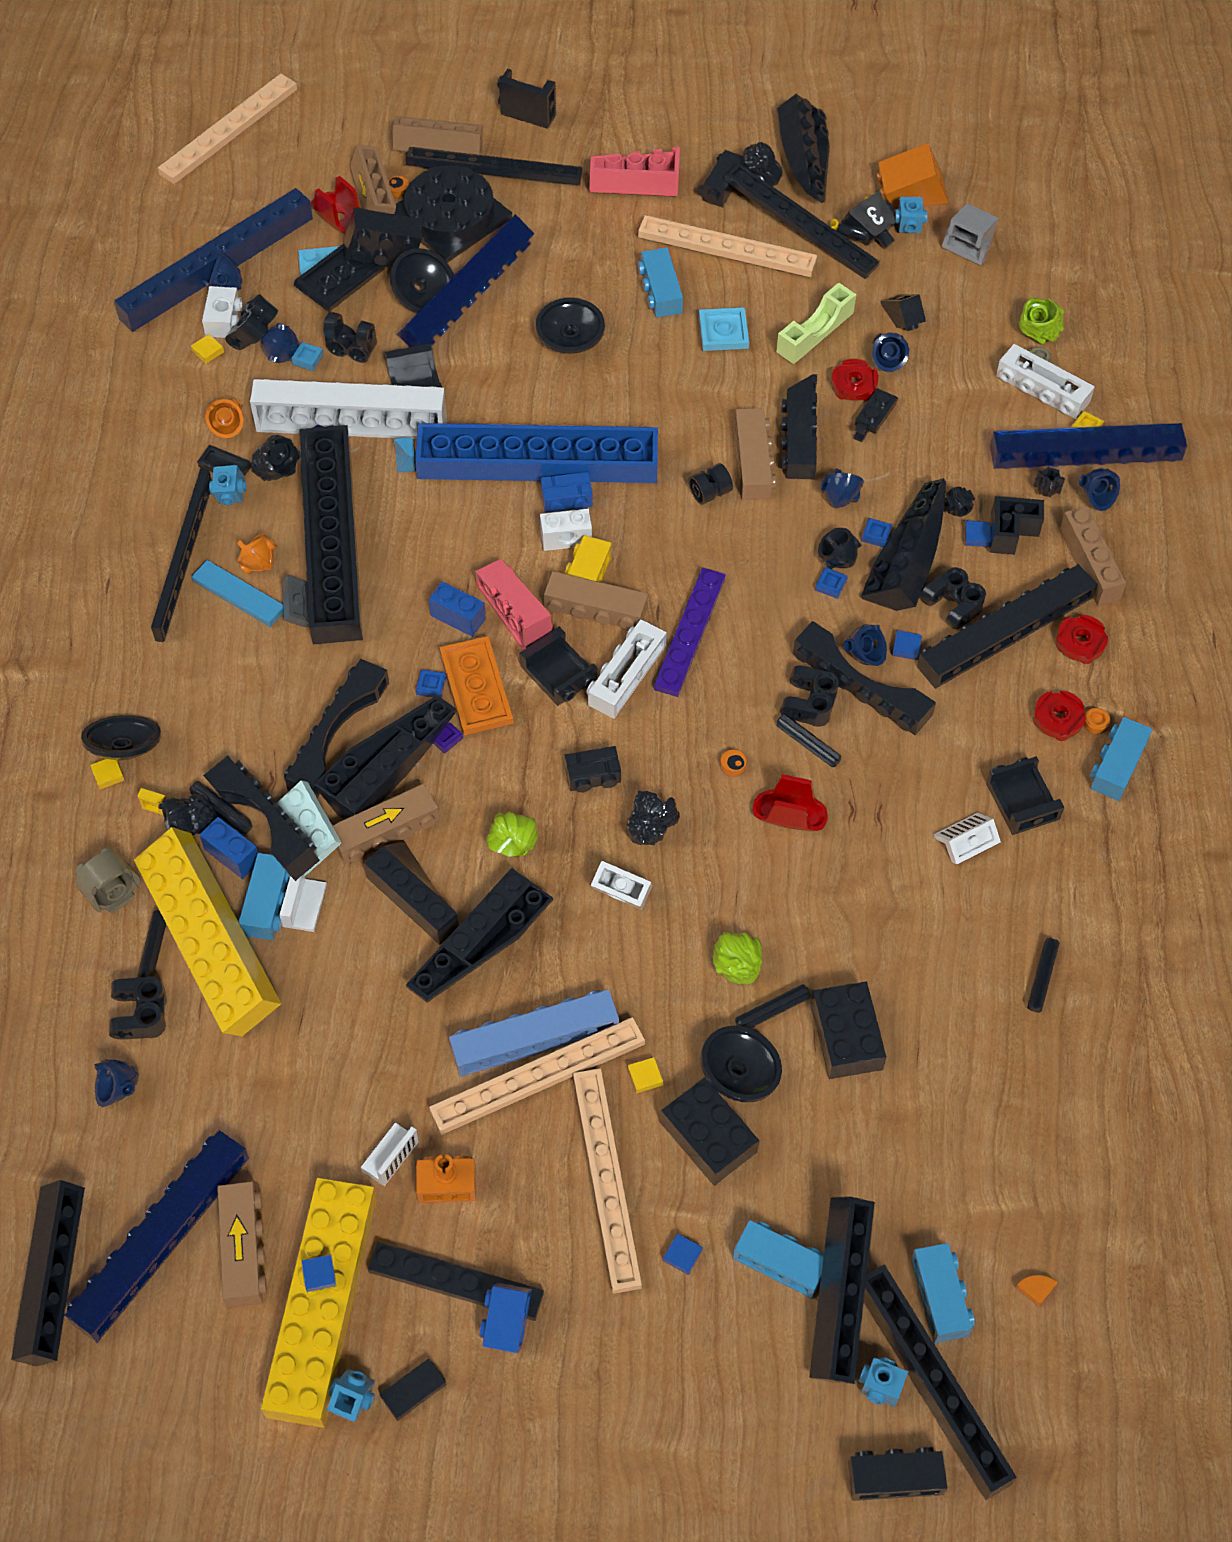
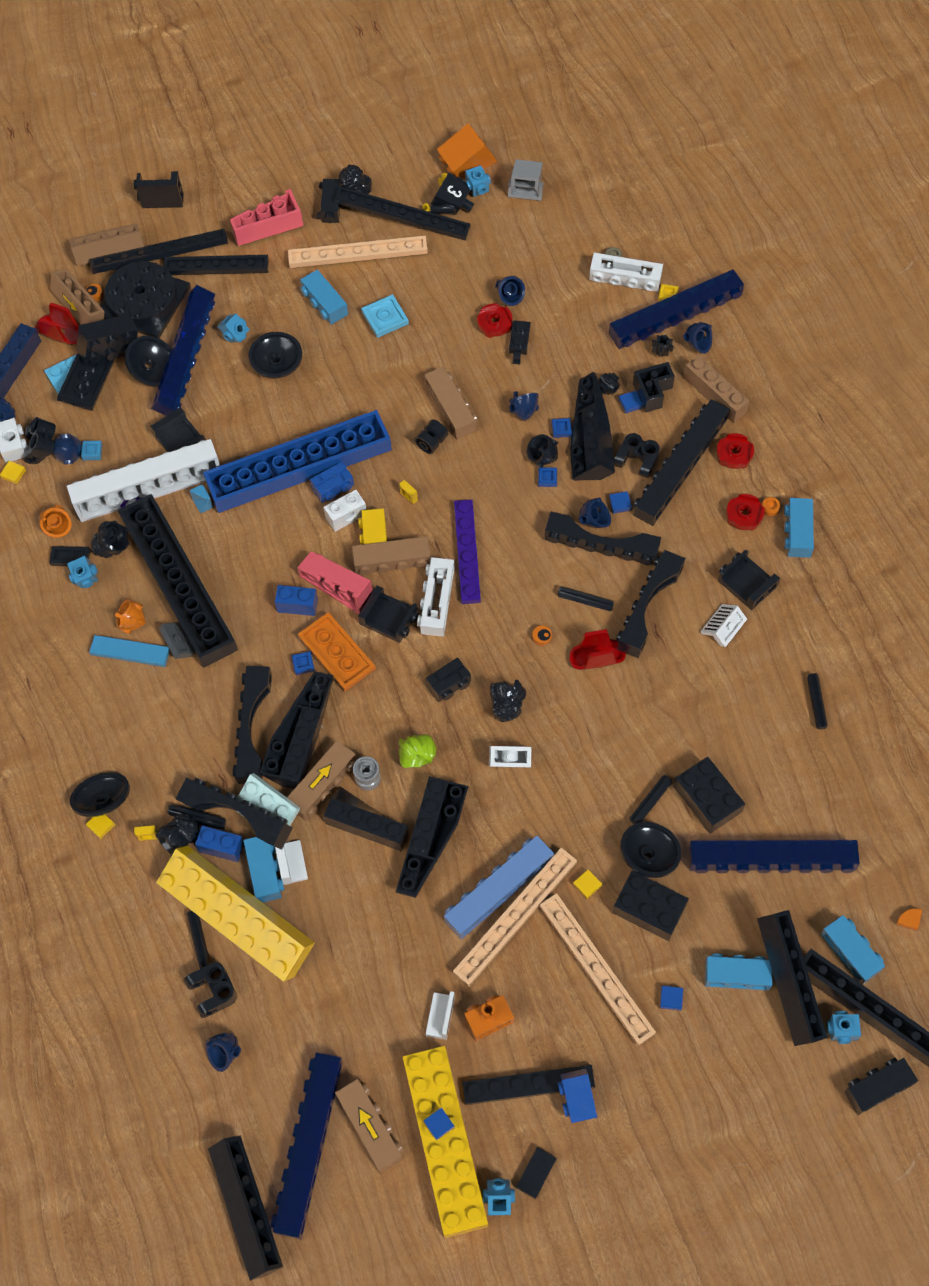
camera: 20 degrees left, 5 degrees up
(107, 881) = (143, 906): dark tan brick -> none
(181, 556) = (74, 638): black tile -> none
(342, 339) = (114, 428): black piece -> none
(441, 836) = (366, 773): none -> light grey wheel
(448, 738) = (335, 698): dark purple tile -> none
(537, 279) = (233, 328): none -> dark azure brick
(554, 204) = (217, 264): none -> black plate
(652, 537) = (408, 492): none -> yellow tile
(738, 957) = (612, 774): lime hair -> none
(800, 429) = (475, 372): black wedge -> none
(805, 144) = (378, 153): black wedge -> none
(805, 710) = (568, 554): black piece -> none
(833, 310) = (444, 301): yellowish green arch -> none
(896, 1137) = (773, 855): none -> clear blue brick
(905, 310) = (505, 254): black slope -> none
(921, 748) = (666, 573): none -> black arch
(1041, 320) = (604, 227): lime hair -> none

